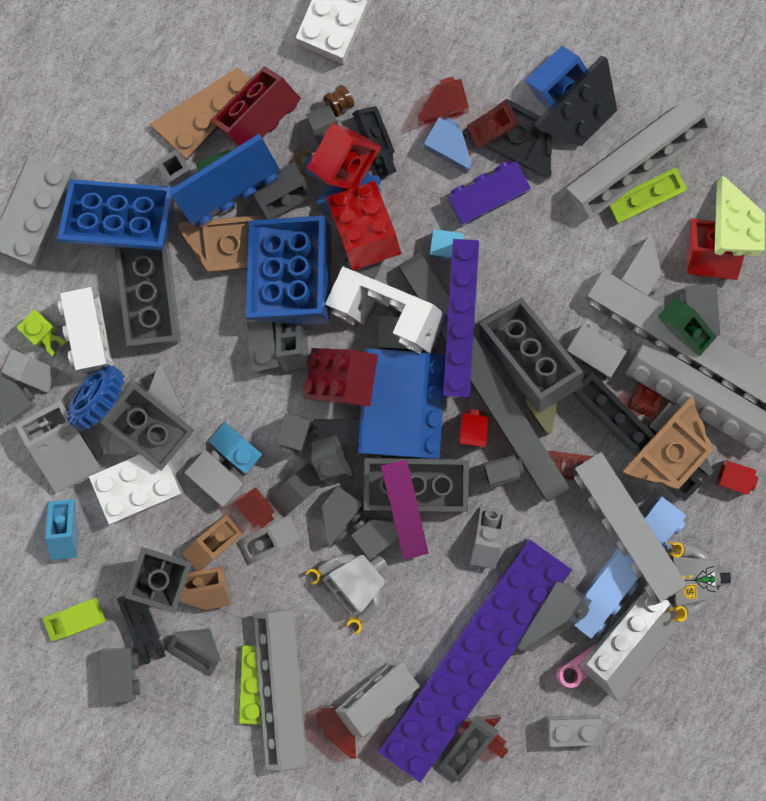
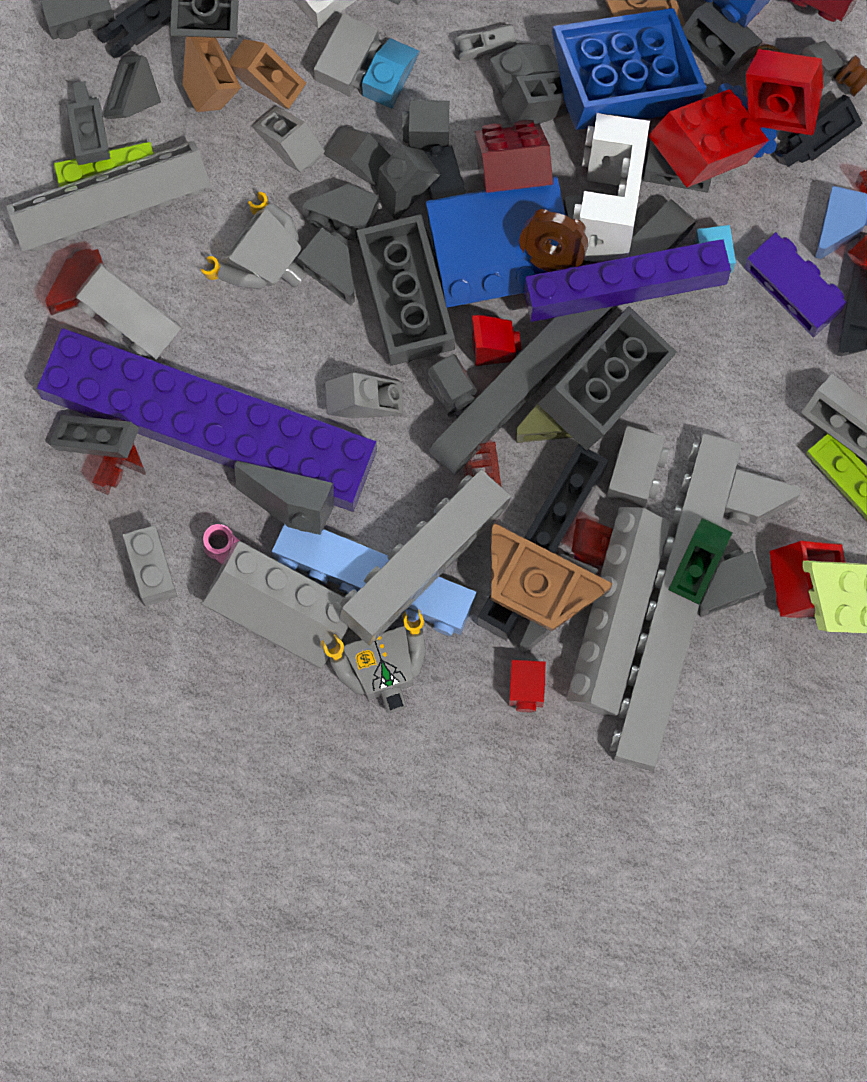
camera: 75 degrees right, 10 degrees down
(219, 691) = (87, 126): none -> dark grey hinge
(232, 364) = (491, 41): none -> light grey bar
(256, 508) = (324, 111): clear red brick -> none
(405, 509) = (370, 274): magenta slope -> none
(422, 366) = (561, 228): none -> reddish brown plate

